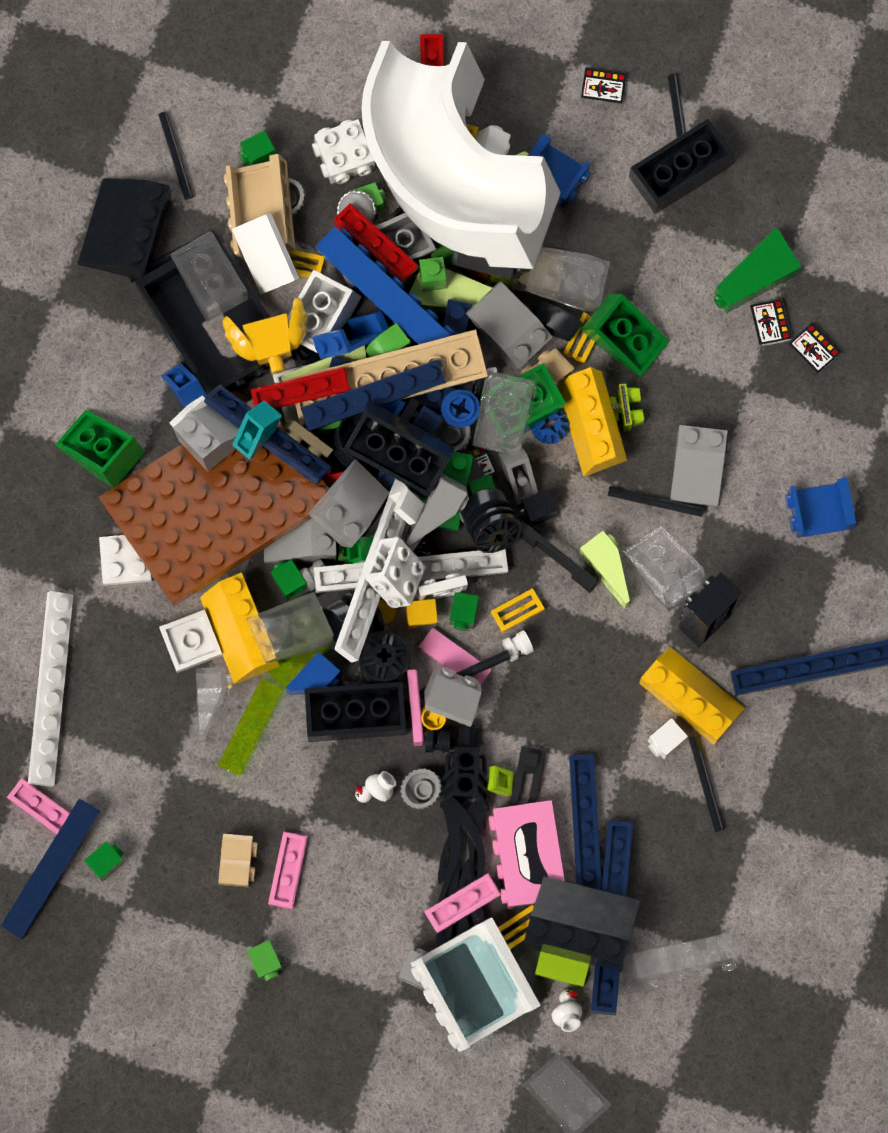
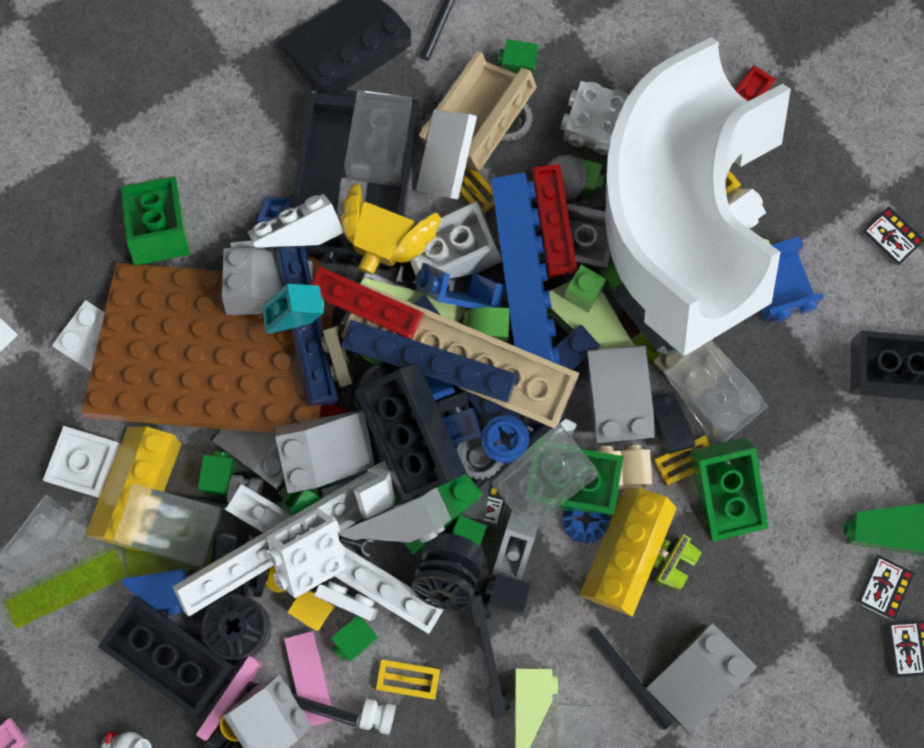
camera: 40 degrees right, 0 degrees up
(212, 373) = (304, 225): none -> white slope

